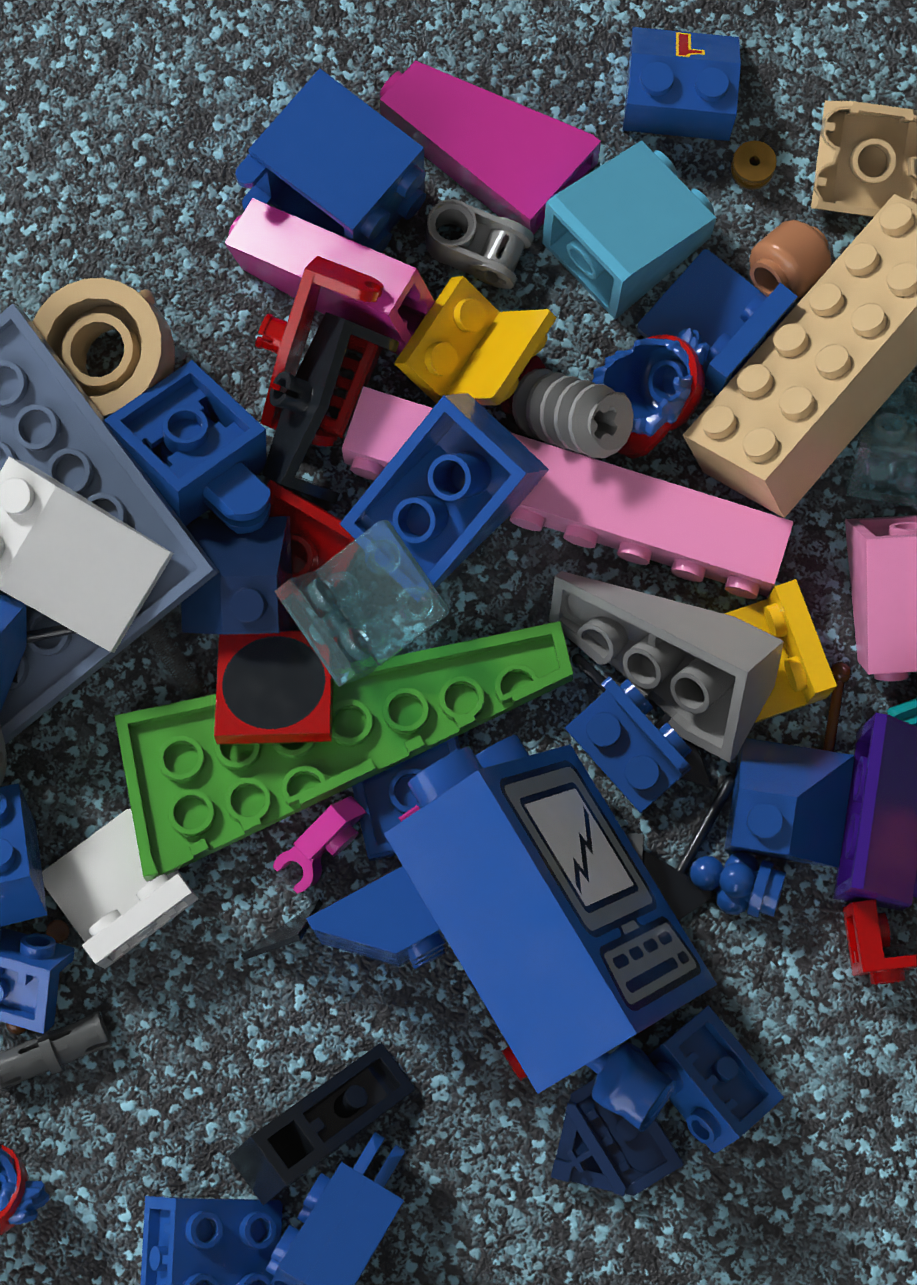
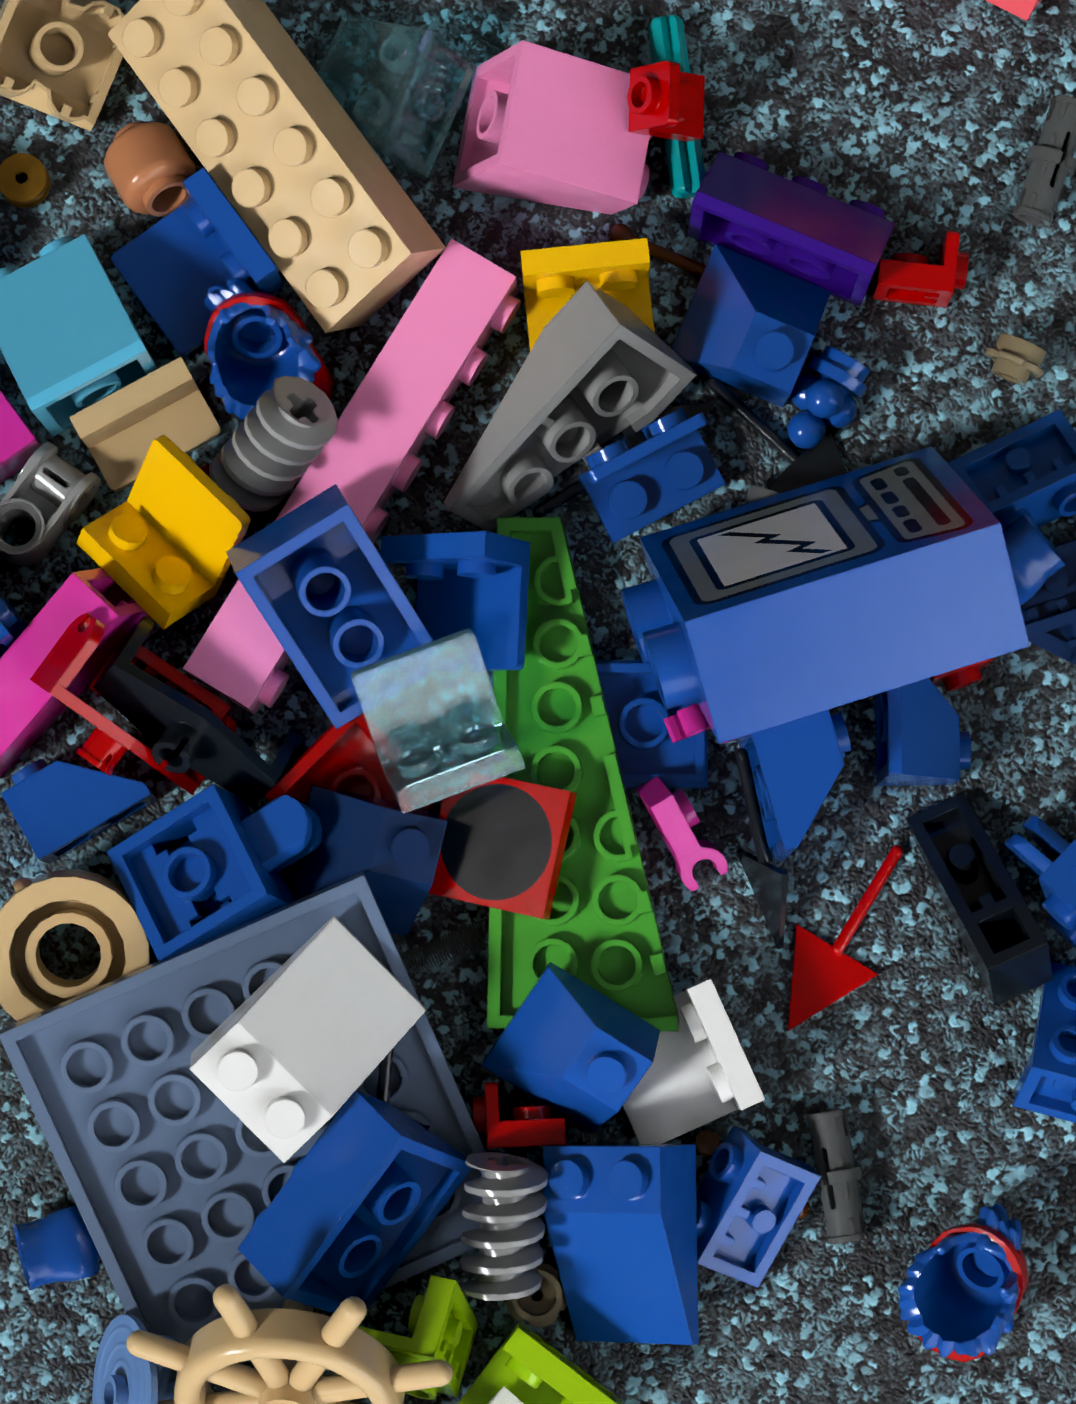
camera: 70 degrees left, 5 degrees up
(37, 772) = (529, 1126): none -> red bracket
(111, 791) = (574, 1049): none -> blue slope
(225, 322) = (70, 804): none -> blue slope
(230, 999) = (822, 970): none -> red piece
(450, 1034) = (918, 738): none -> blue slope
(488, 610) = (469, 584): none -> blue bracket
(586, 319) = (127, 421): none -> tan panel
(819, 1047) = (1016, 359): none -> dark tan plate

